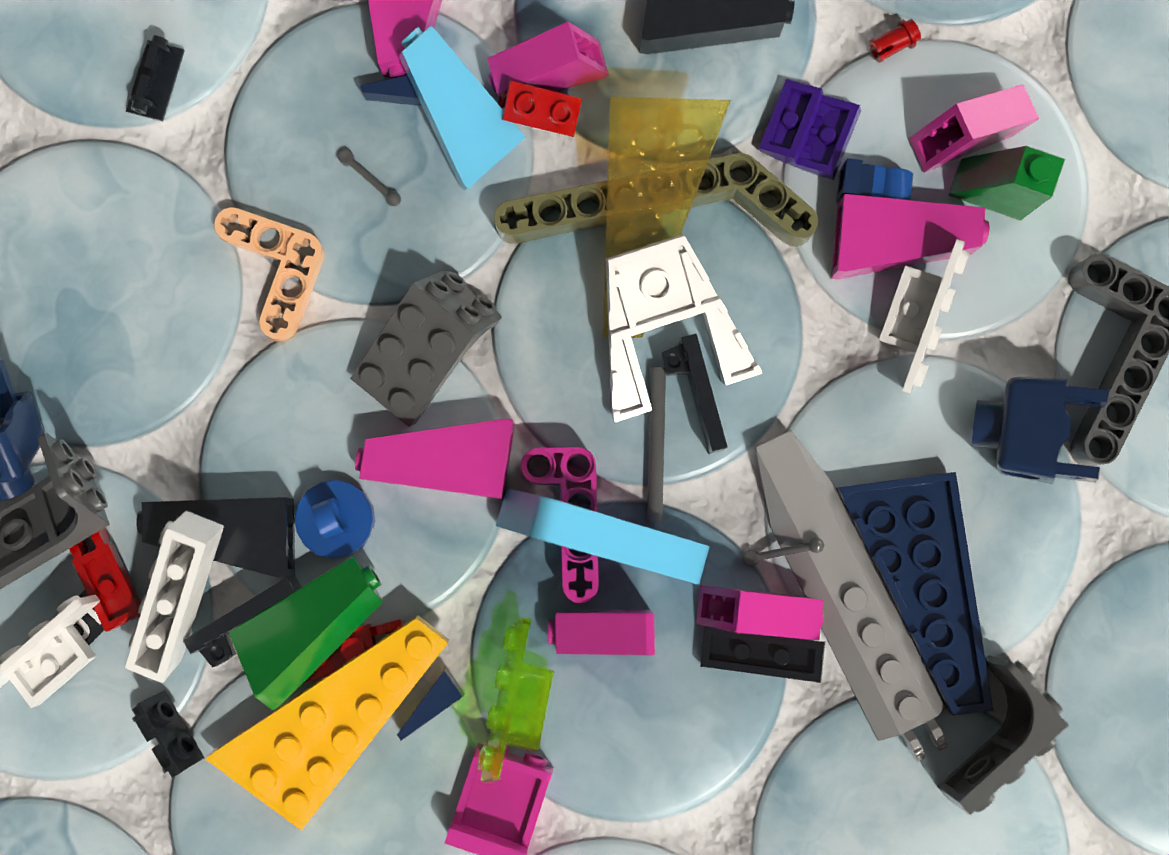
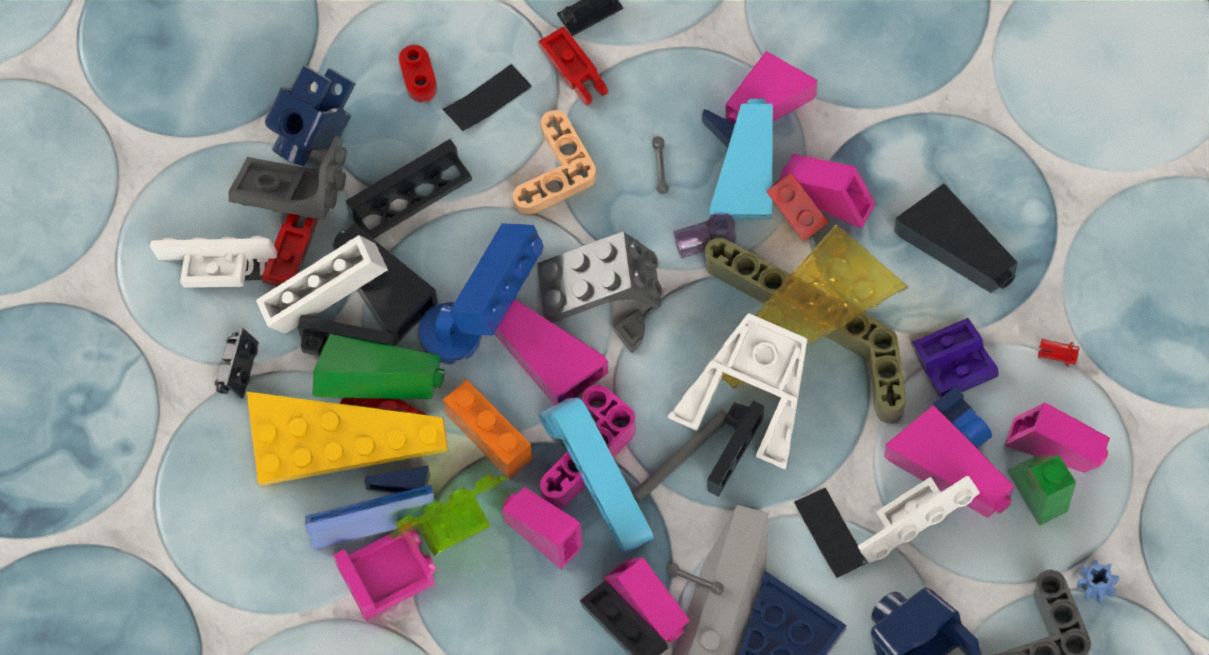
camera: 45 degrees right, 20 degrees down
(49, 288) = (416, 71): none -> red plate
(142, 255) = (487, 98): none -> black sticker
(145, 415) = (403, 181): none -> black fence
(190, 149) = (572, 64): none -> red hinge
(335, 435) = (497, 279): none -> blue brick
(437, 769) = (366, 517): none -> fence
(463, 584) = (488, 429): none -> orange brick
(477, 215) = (694, 238): none -> clear purple piece
(498, 364) = (631, 330): none -> dark grey tile
(853, 394) = (830, 532): none -> black sticker
(1126, 230) = (1097, 572): none -> medium blue gear

